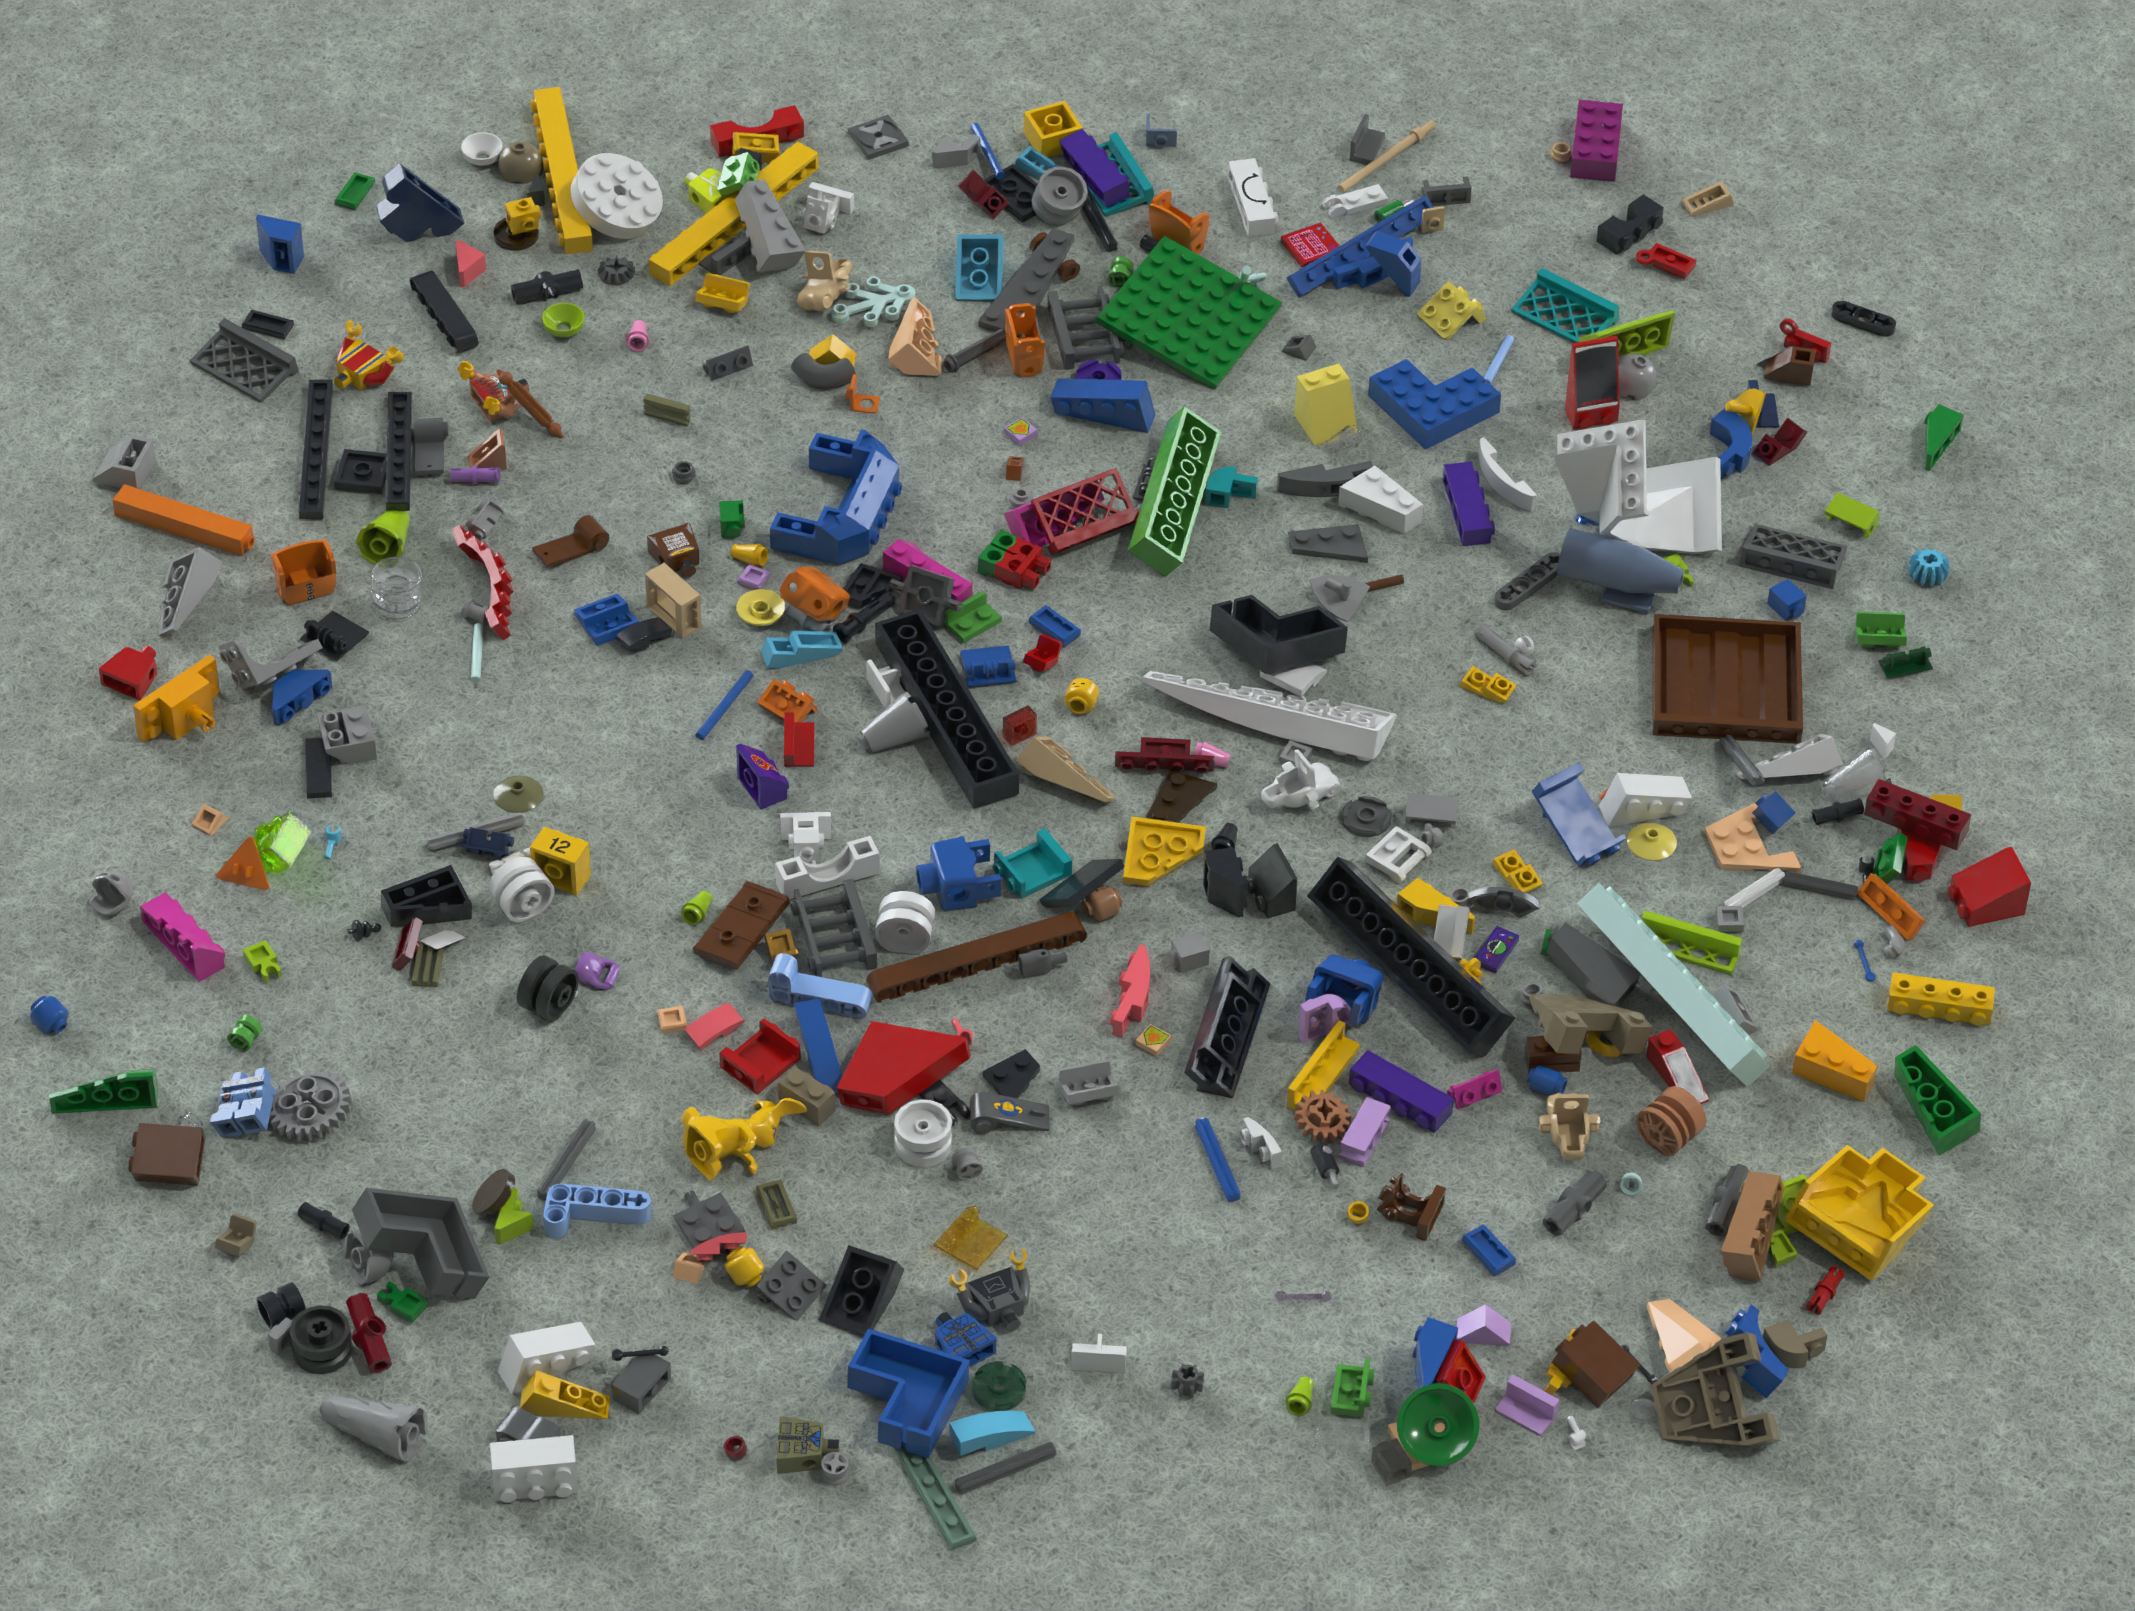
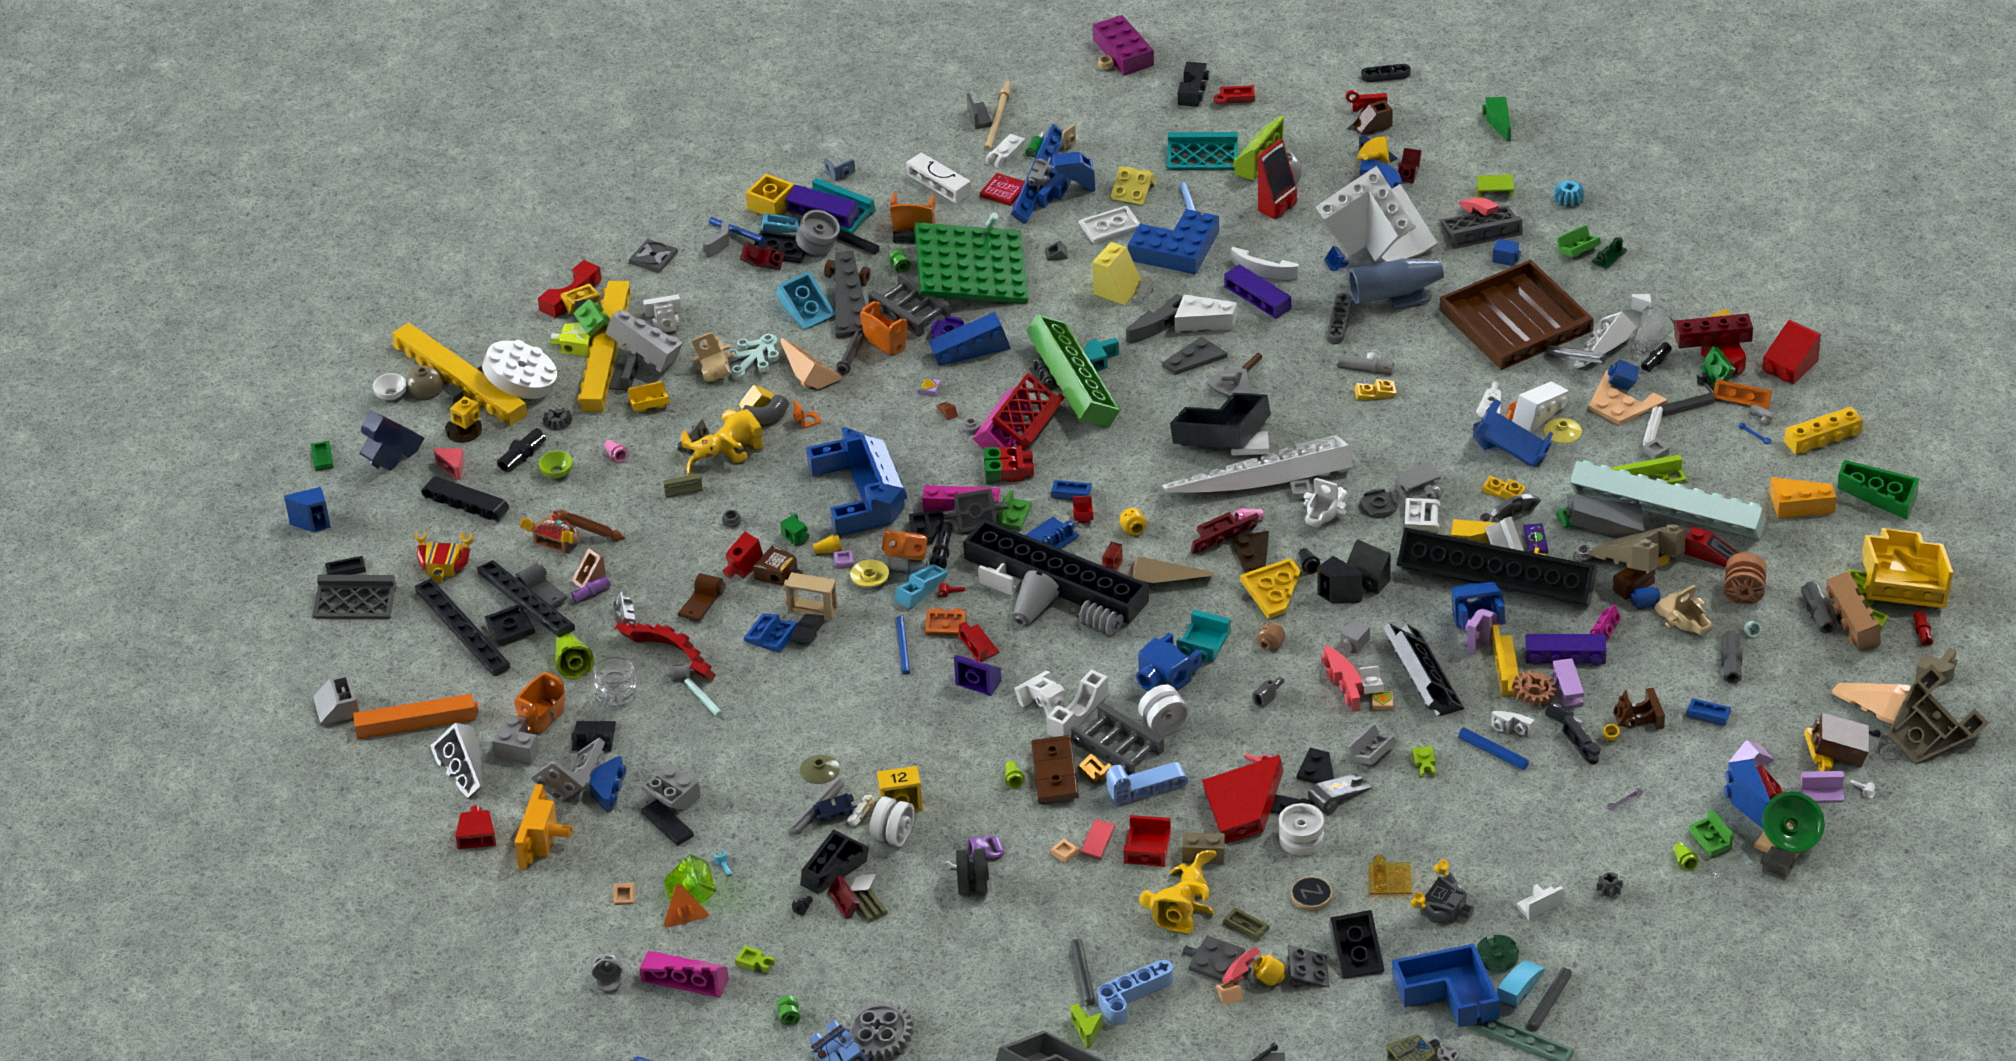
camera: 30 degrees left, 5 degrees down
(250, 598) = (514, 741): none -> light grey brick
(493, 1193) = (1061, 1015): dark brown tile -> none
(646, 519) = (743, 556): none -> red torso
(770, 378) = (737, 431): none -> yellow animal
(818, 1043) = (1178, 811): blue slope -> none
(821, 665) = (944, 590): none -> red hand
(874, 1209) = (1311, 893): none -> black tile
(944, 785) = (1100, 619): none -> light grey piece
(964, 1338) = (1448, 934): blue torso -> none
(966, 1163) = (1344, 833): light grey wheel -> none
(974, 956) = (1223, 708): reddish brown beam -> none
(1082, 883) = (1248, 630): black tile -> none
(1132, 1128) = (1425, 759): none -> lime plate
(1159, 1011) = (1371, 679): none -> white bracket
(1317, 1205) = (1581, 740): none -> black hinge
(1351, 252) = (1038, 172): none -> light grey hinge
(1386, 344) = (1109, 224): none -> white tile
(1448, 193) = (1060, 119): dark grey hinge -> none
(1601, 772) = (1485, 403): none -> white piece
(1717, 189) = (1225, 39): tan slope -> none
(1768, 1373) = (1906, 673): blue arch -> none
(1811, 529) = (1479, 204): none -> coral slope

